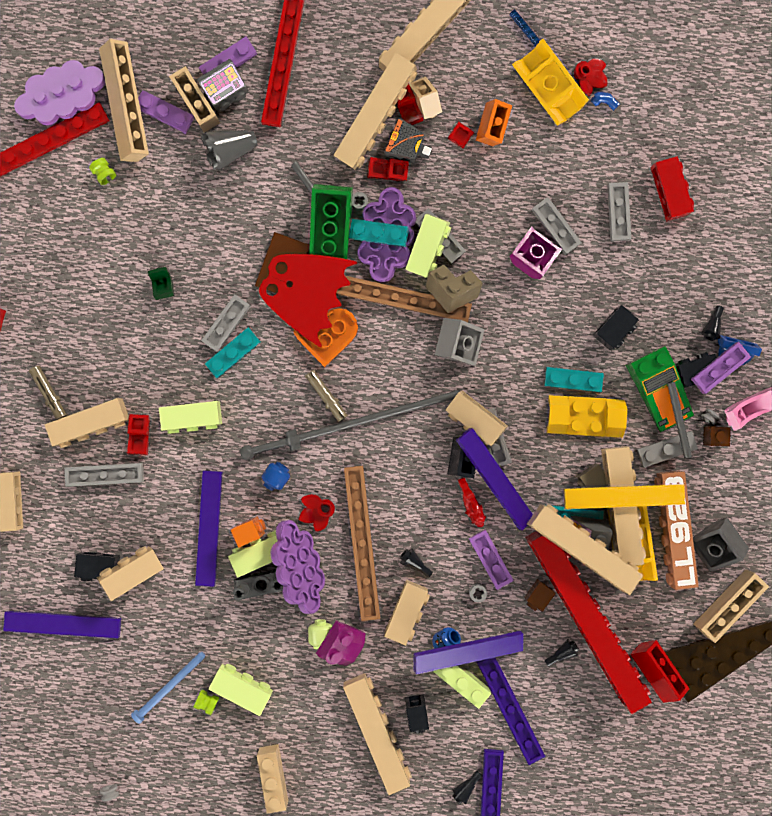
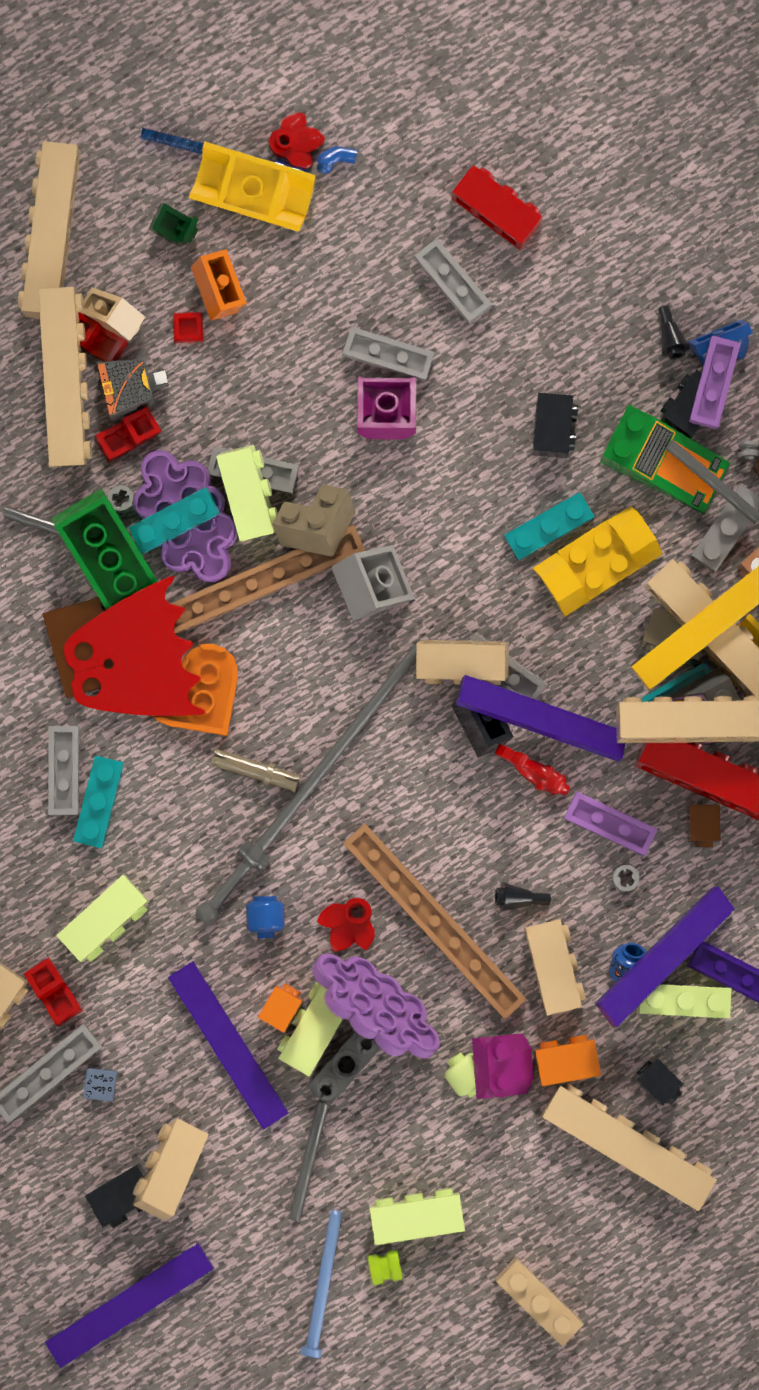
camera: 30 degrees left, 5 degrees down
(128, 500) = (100, 1084): none -> sand blue tile
(205, 619) = (308, 1161): none -> dark grey bar
(377, 666) = (567, 1061): none -> orange brick
(493, 73) = (173, 225): none -> dark green bracket

